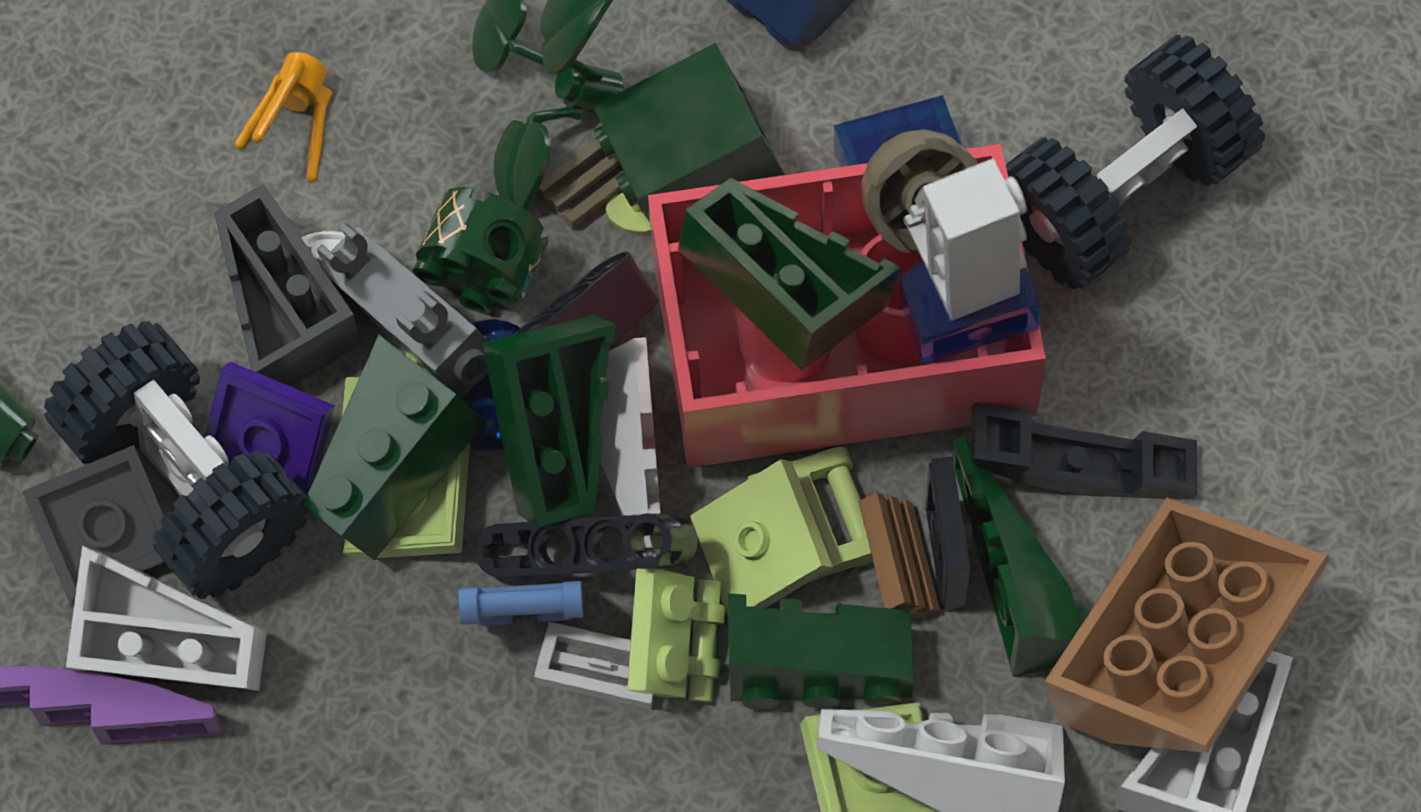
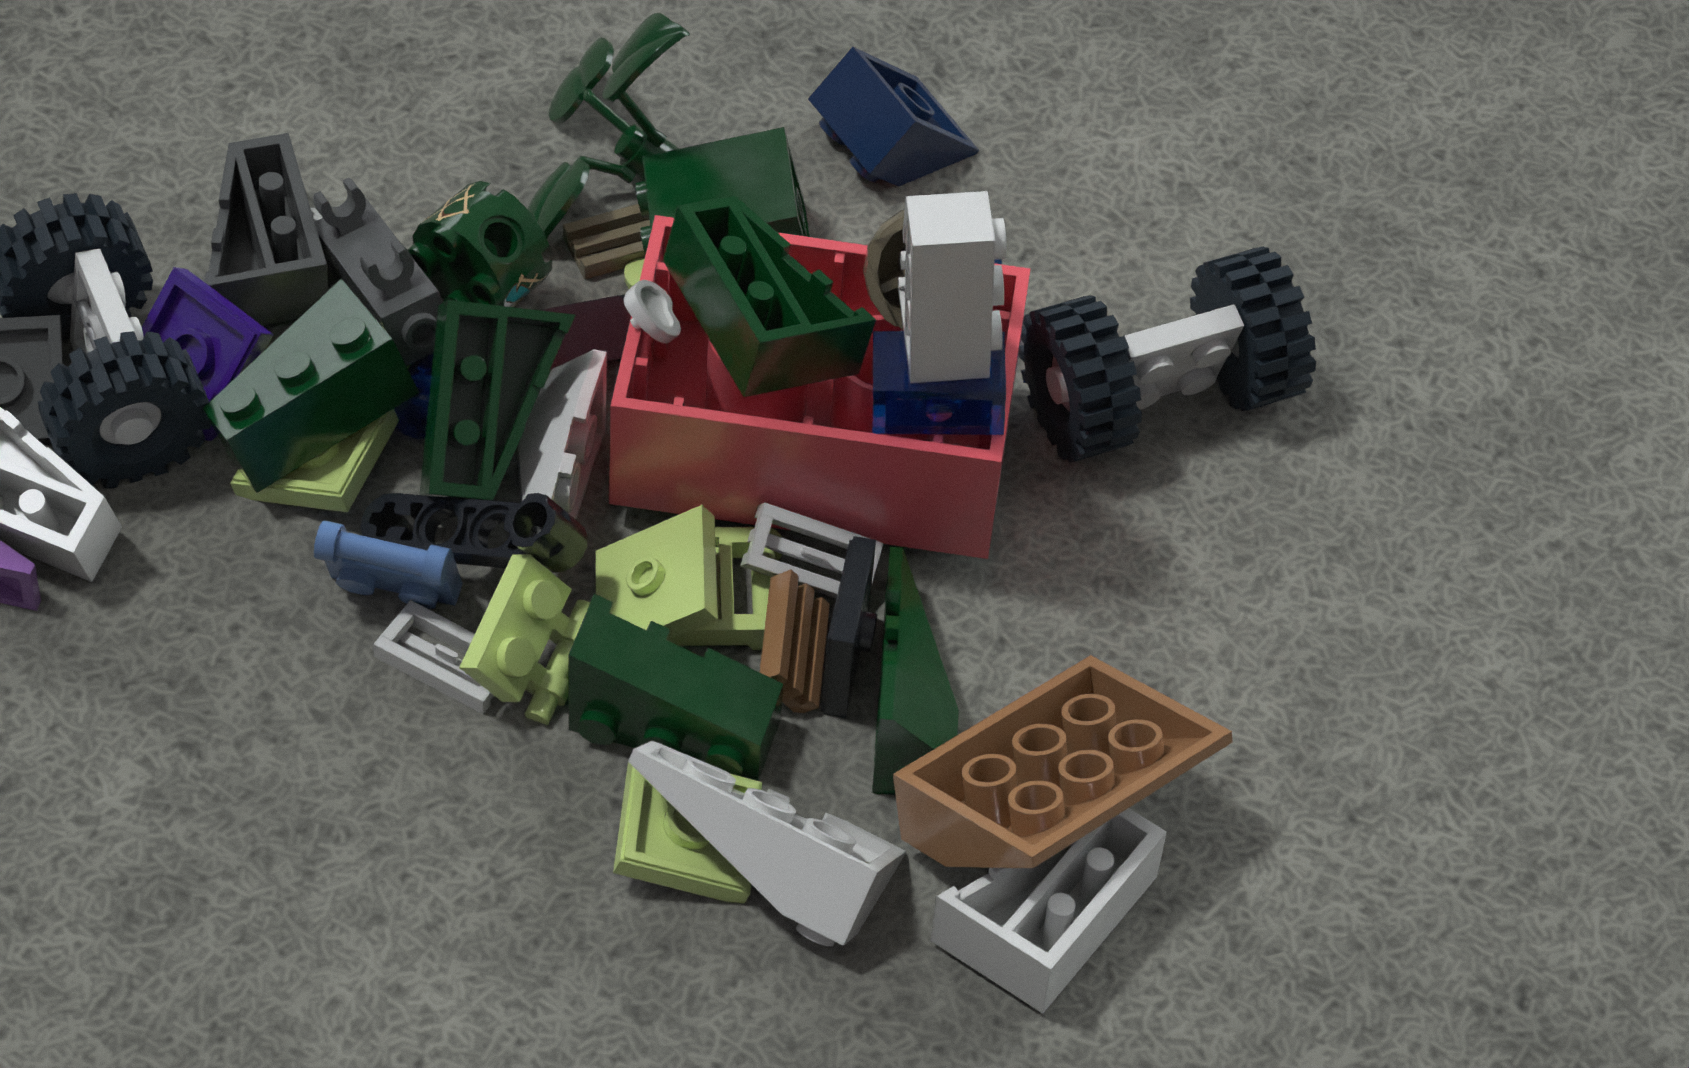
camera: 10 degrees right, 15 degrees down
(294, 88) = (360, 81): light orange plant -> none
(687, 307) = (652, 311): none -> white piece
(839, 466) = (761, 539): none -> white tile
(1079, 460) = (1009, 610): black slope -> none

